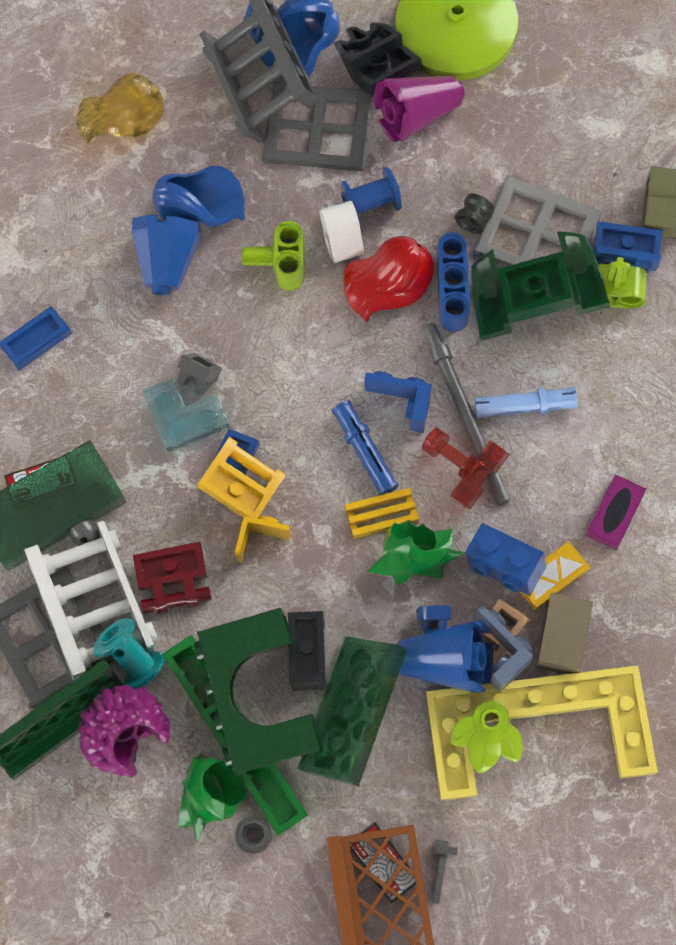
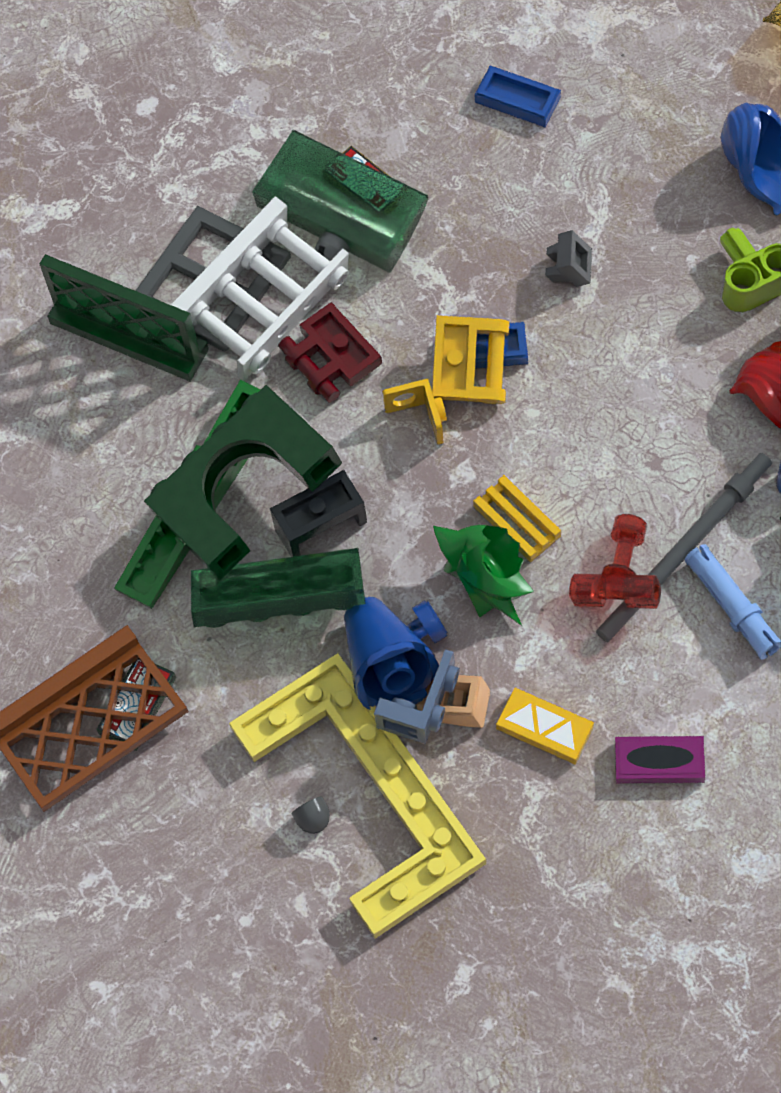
camera: 65 degrees right, 5 degrees down
(115, 723) = (139, 376): magenta hair -> none
(132, 657) = (221, 348): teal hose -> none
(165, 250) = (683, 156): blue cone -> none
(180, 423) = (503, 274): clear light blue plate -> none
(209, 793) = (117, 494): green hair -> none
(253, 823) = (98, 554): dark grey plate -> none
(358, 436) = (606, 428): blue pin -> none
(411, 388) = (660, 493): blue bracket -> none
(441, 850) = (178, 754): dark grey piece -> none
(488, 742) = (312, 736): lime plate -> none
(505, 559) = (529, 662): blue brick -> none
(541, 773) = (312, 815): none -> dark grey hinge
(564, 634) = (479, 761): dark tan panel -> none

